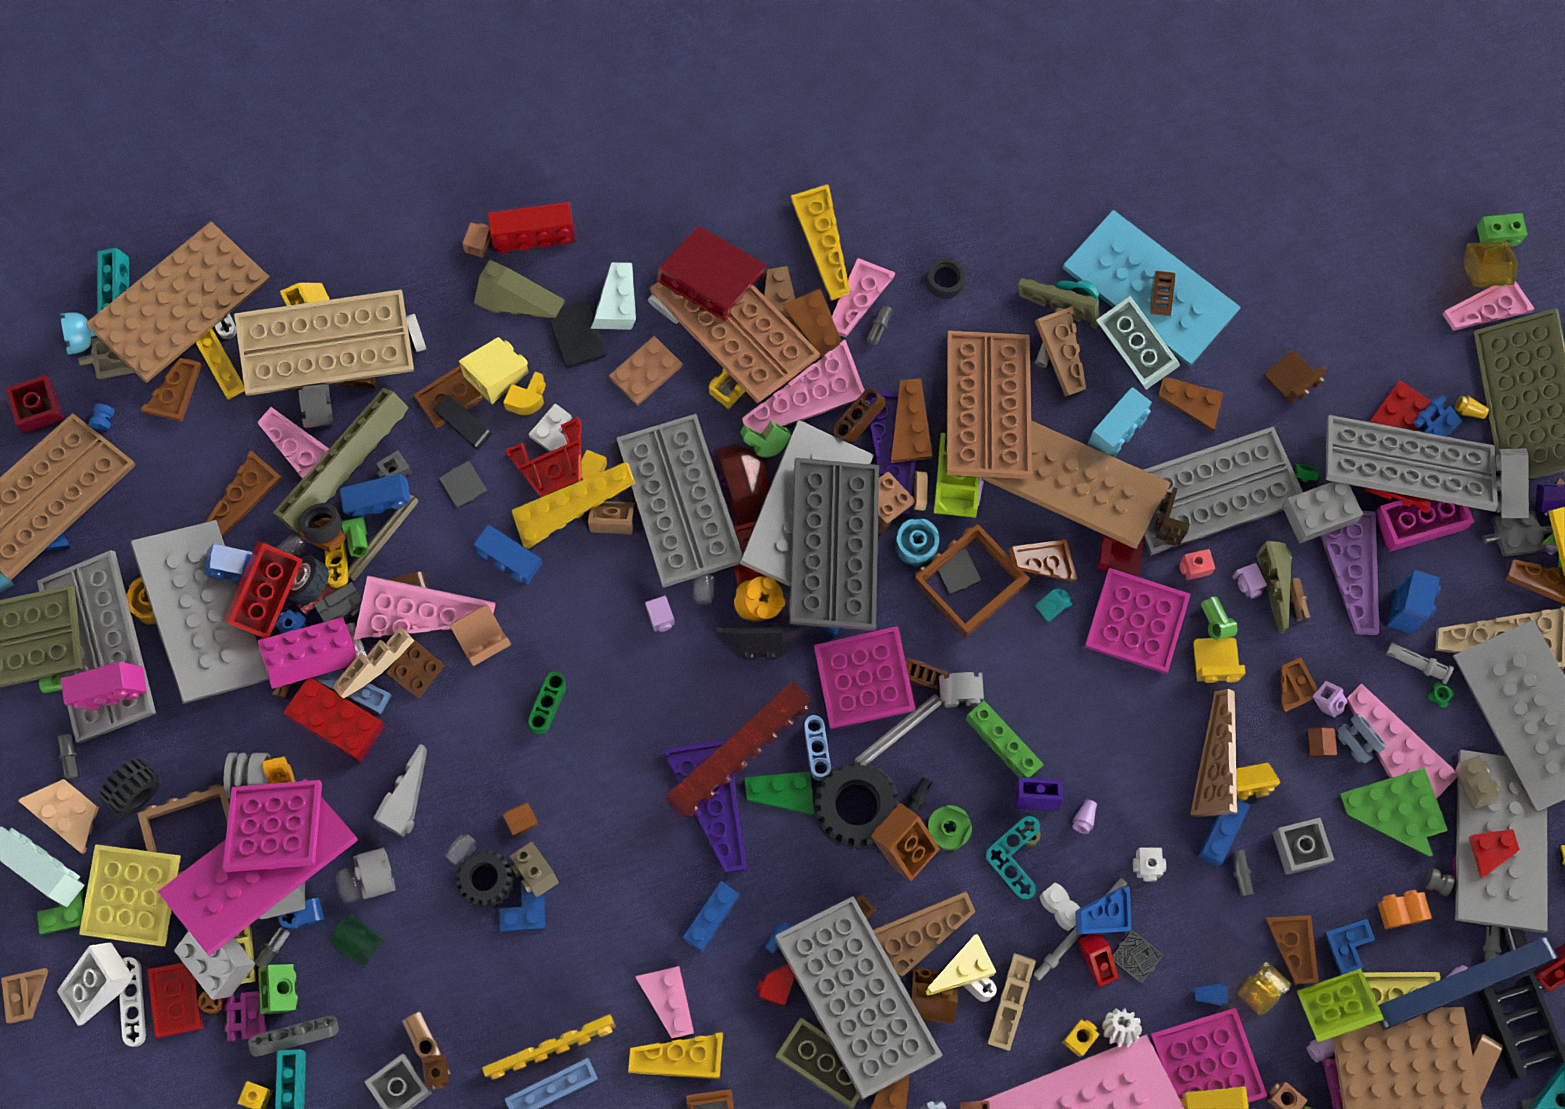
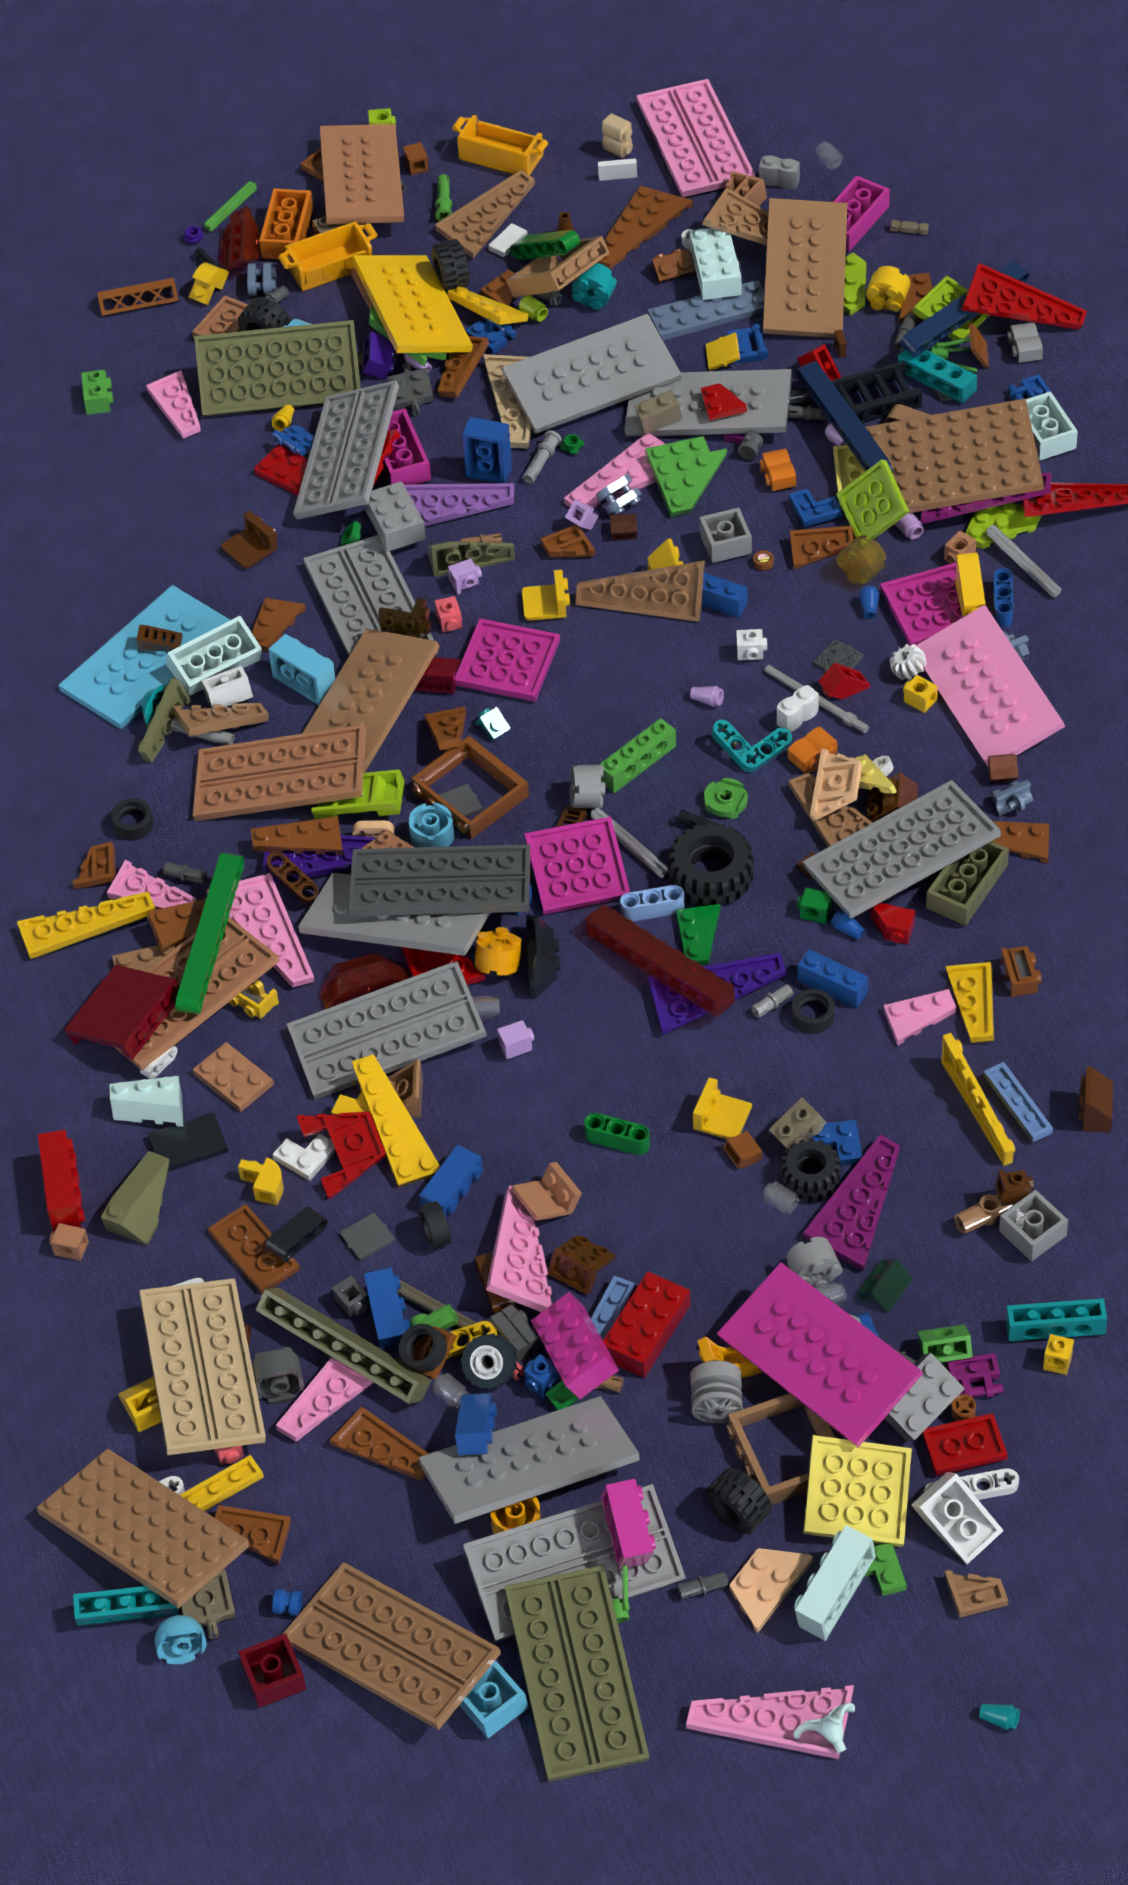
camera: 85 degrees left, 20 degrees down
(262, 590) = (506, 1387): red brick -> none
(272, 826) = (776, 1337): dark pink plate -> none
(293, 1035) = (988, 1328): dark grey beam -> none
(368, 667) = (583, 1285): tan slope -> none
(399, 808) = (729, 1252): light grey wedge -> none
(438, 916) = (856, 1206): none -> magenta wing
(455, 537) = (434, 1224): none -> black tyre
(494, 368) = (237, 1203): light yellow slope -> none
(562, 800) = (719, 1113): none -> yellow bracket
(676, 878) = (812, 1025): none -> black tyre
(693, 857) = (771, 1001): none -> light grey axle
(770, 442) = (319, 954): bright green brick -> none
(787, 340) = (209, 933): none -> green beam
(805, 905) = (814, 905): none -> green brick
(891, 251) = (97, 867): none -> dark orange wing
(905, 842) = (747, 816): dark orange brick -> none
(951, 936) = (835, 783): none -> light nougat wing
(1007, 919) = (806, 751): none -> orange brick
(1011, 1002) = (897, 747): tan slope -> none
(1038, 794) = (689, 725): dark purple brick -> none
(1099, 356) = (227, 687): none -> white brick
(1106, 914) = (803, 671): blue wing -> none
(1220, 625) = (502, 599): bright green piece -> none
(1242, 873) = (754, 581): dark grey pin -> none
(1275, 886) = (763, 560): none -> dark orange tile
(1490, 264) = (136, 395): clear yellow brick -> none
(1513, 483) = (361, 371): light grey brick -> none

